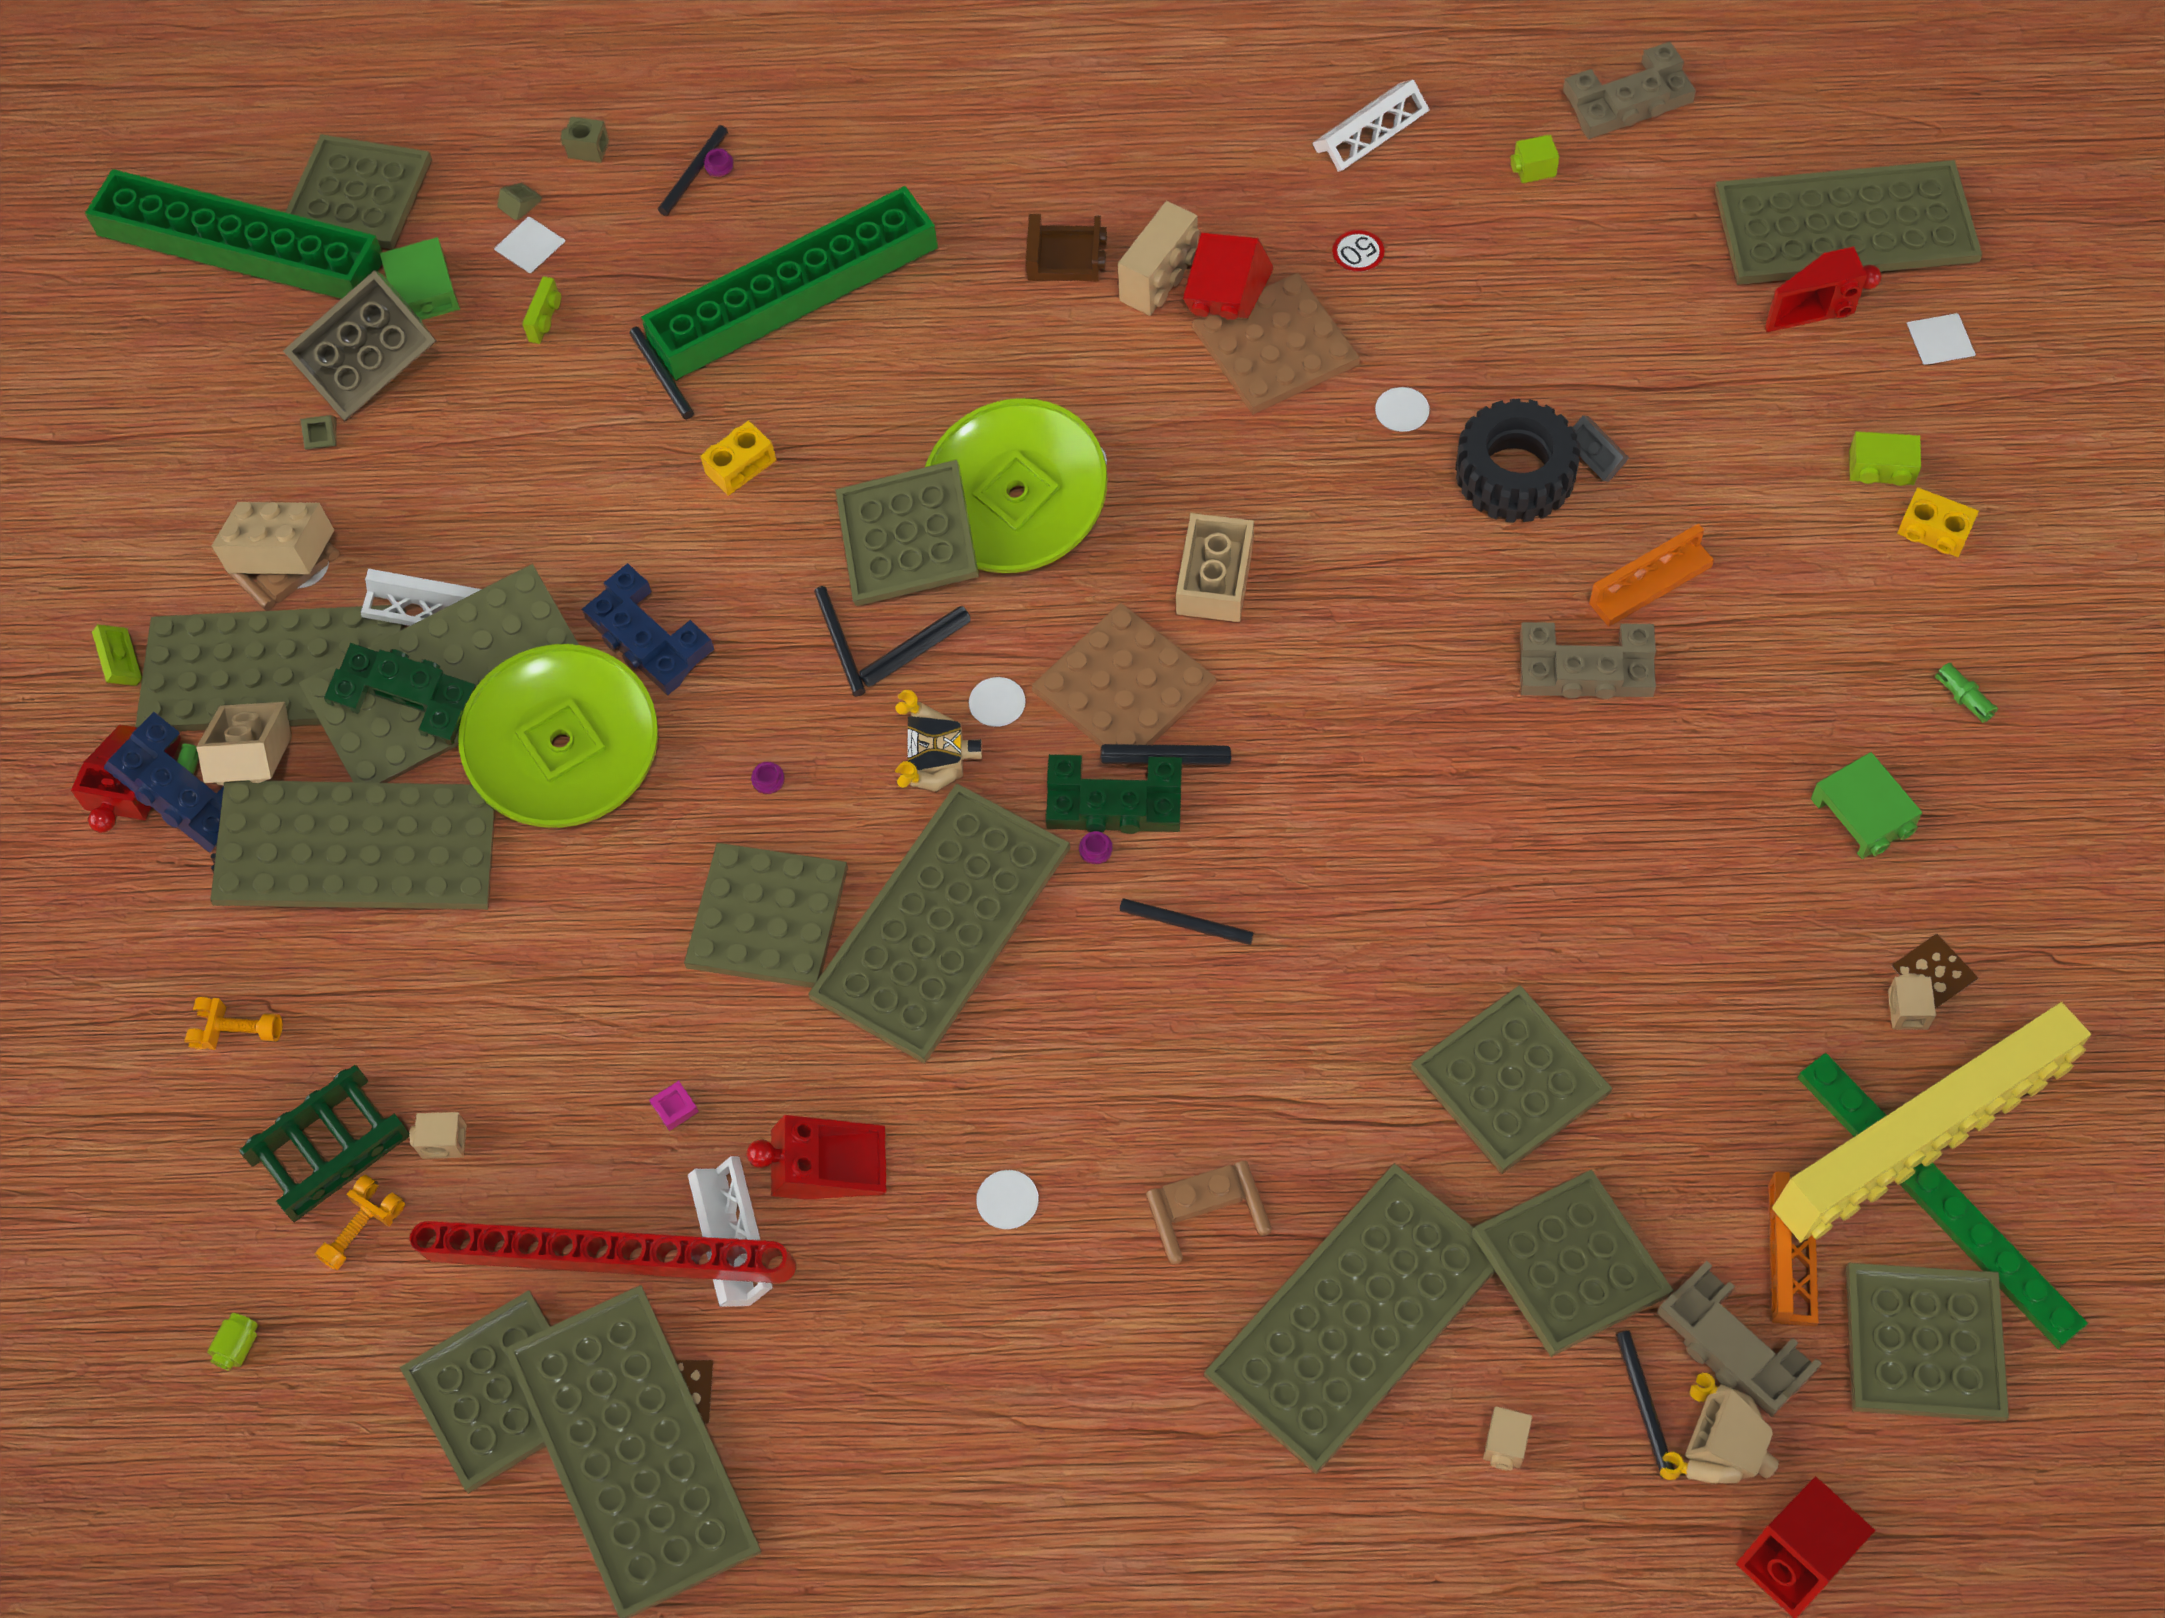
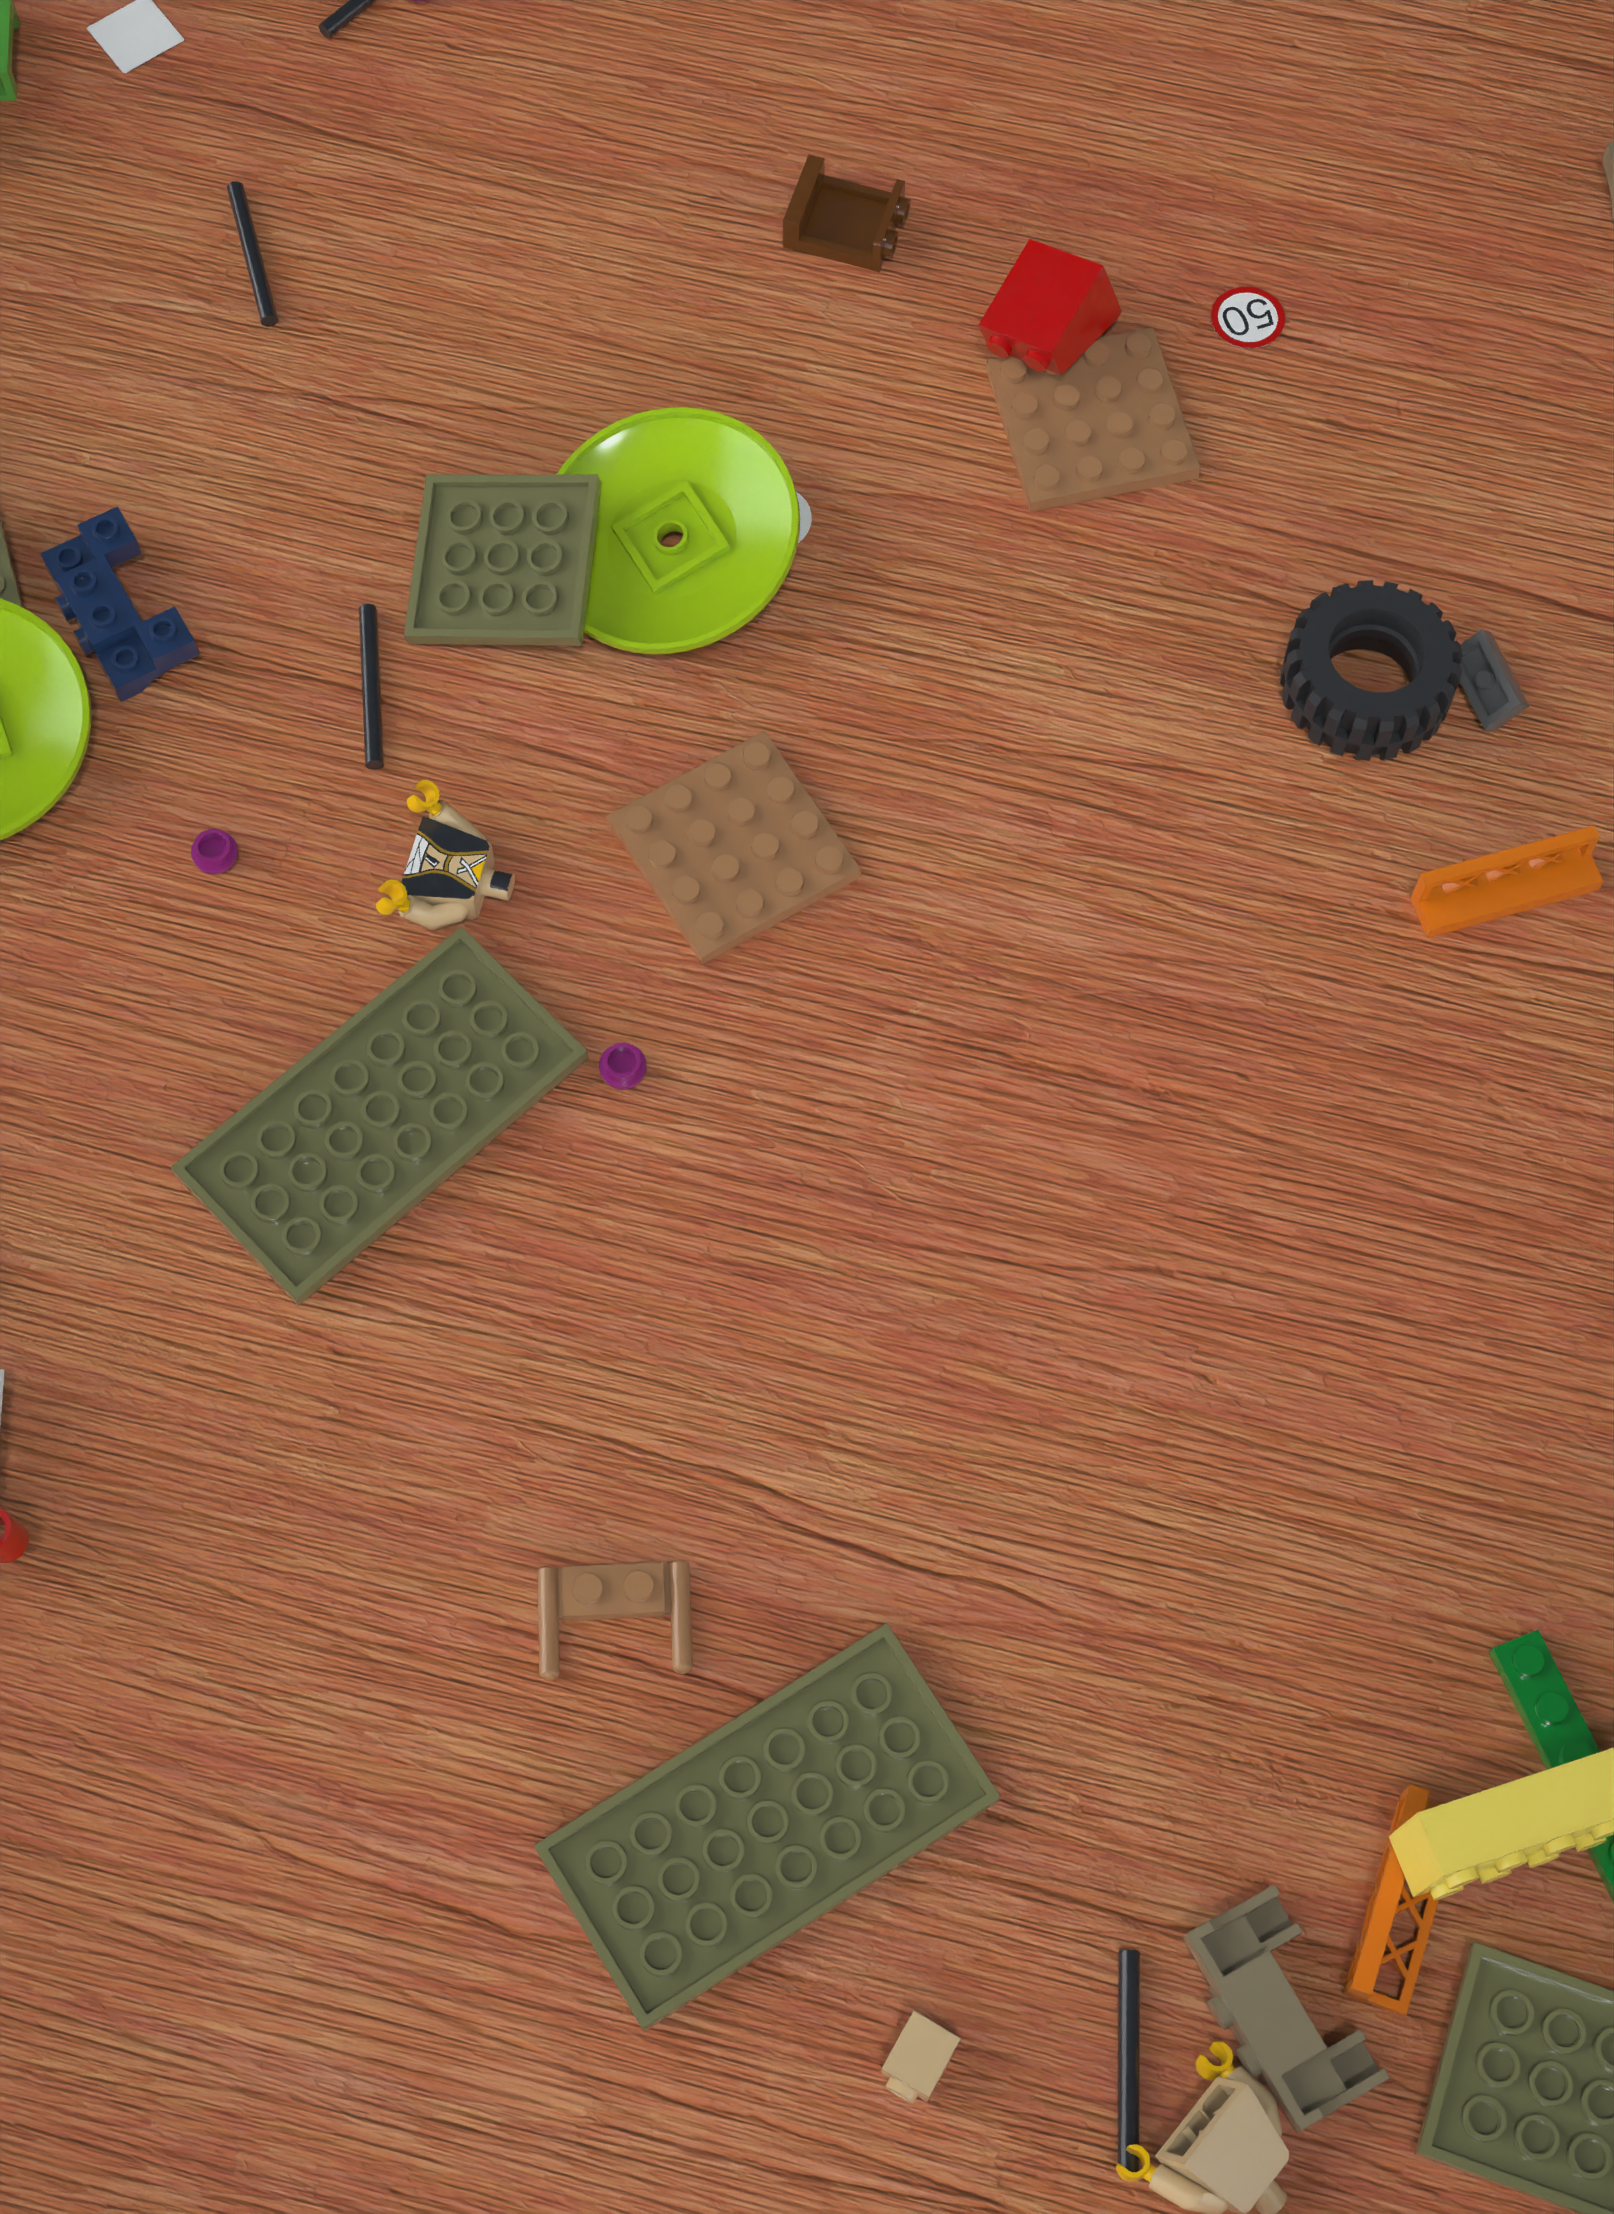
camera: 10 degrees right, 5 degrees up
(541, 309) = (118, 127): lime plate -> none
(739, 460) = (316, 402): yellow brick -> none
(766, 915) = (153, 1042): olive plate -> none
(789, 282) = (459, 170): green brick -> none
(832, 1158) = (133, 1402): red slope -> none
(914, 646) = (468, 719): black axle -> none
(997, 701) = (556, 825): white sticker -> none
(1007, 1199) = (350, 1525): white sticker -> none
(1112, 803) = (666, 1011): dark green bracket -> none
(1158, 258) = (963, 260): tan brick -> none
(1186, 921) = (714, 1202): black bar -> none
(1190, 754) = (757, 960): black axle -> none
(1215, 567) = (905, 715): tan brick -> none
(1364, 117) = (1315, 129): white fence -> none
(1402, 409) = (1238, 556): white sticker -> none
(1511, 1079) = (1087, 1546): olive plate -> none
(1535, 159) = (1532, 247): lime brick -> none
(1571, 1262) = (1086, 1834): olive plate -> none
(1587, 670) = (1376, 992): dark tan bracket -> none

